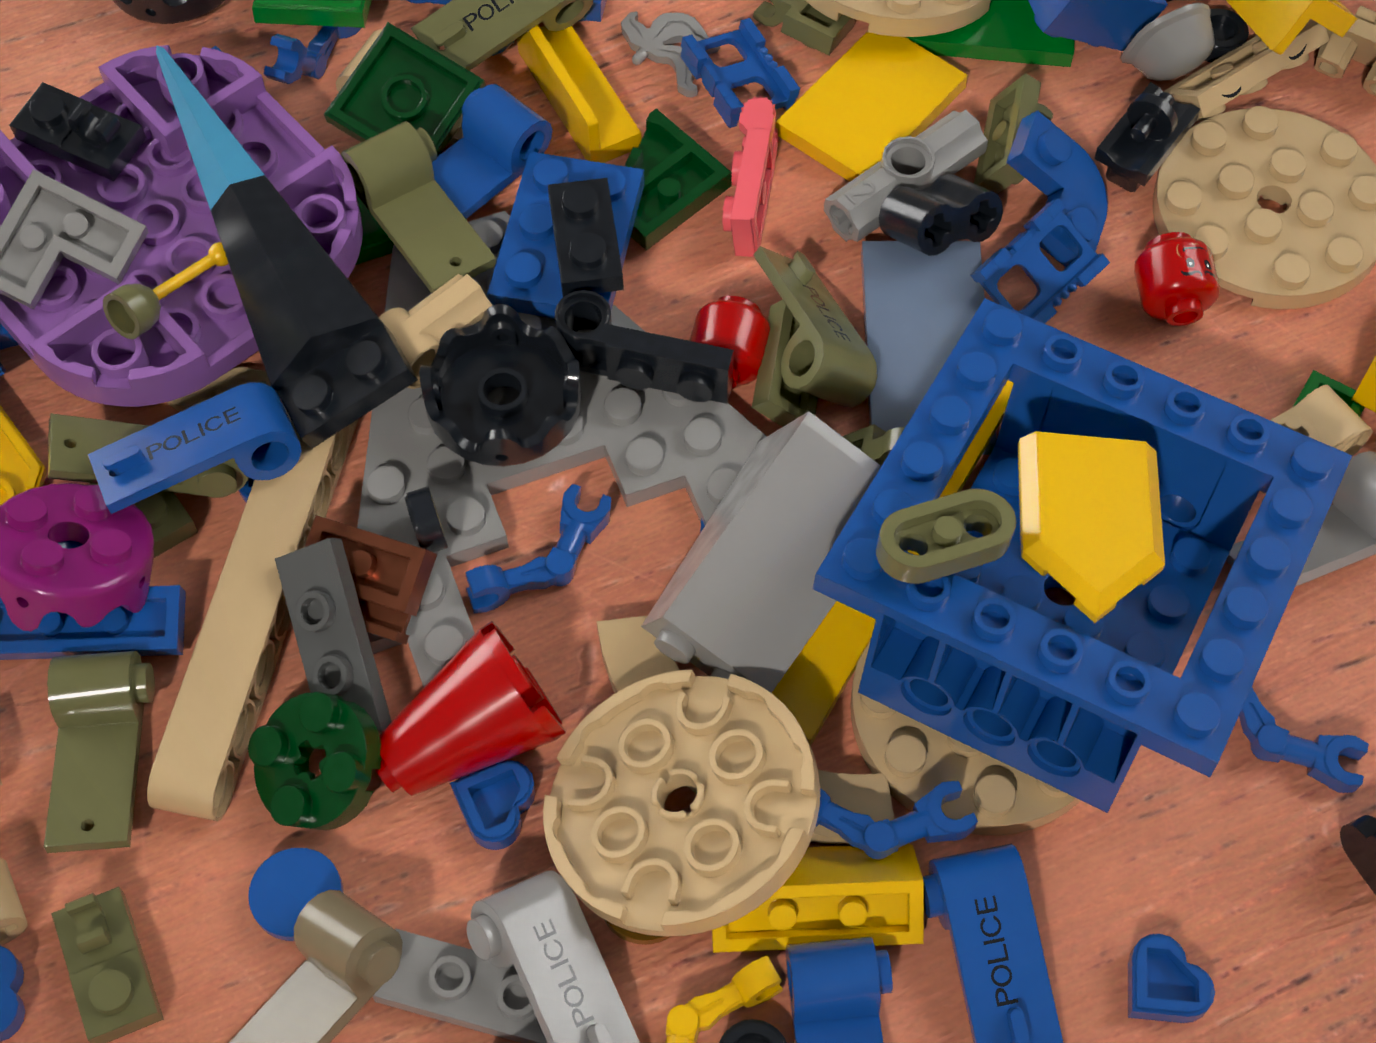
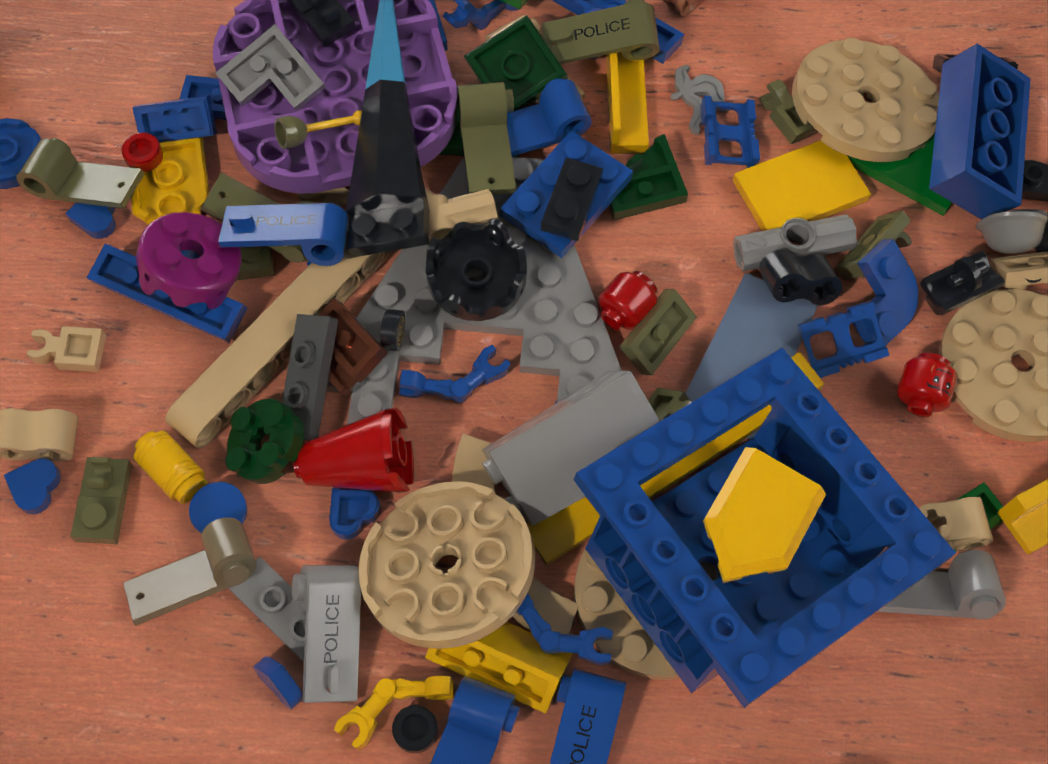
camera: 25 degrees right, 5 degrees up
(97, 752) = (167, 358): olive door -> none
(188, 865) = (169, 466): none -> yellow head
(640, 357) = (566, 288): black plate -> none
(752, 176) = (700, 202): coral hinge -> none
(825, 351) = (683, 332): olive door -> none
(940, 535) = (659, 485): olive plate -> none
(1320, 756) = (824, 703): blue piece -> none

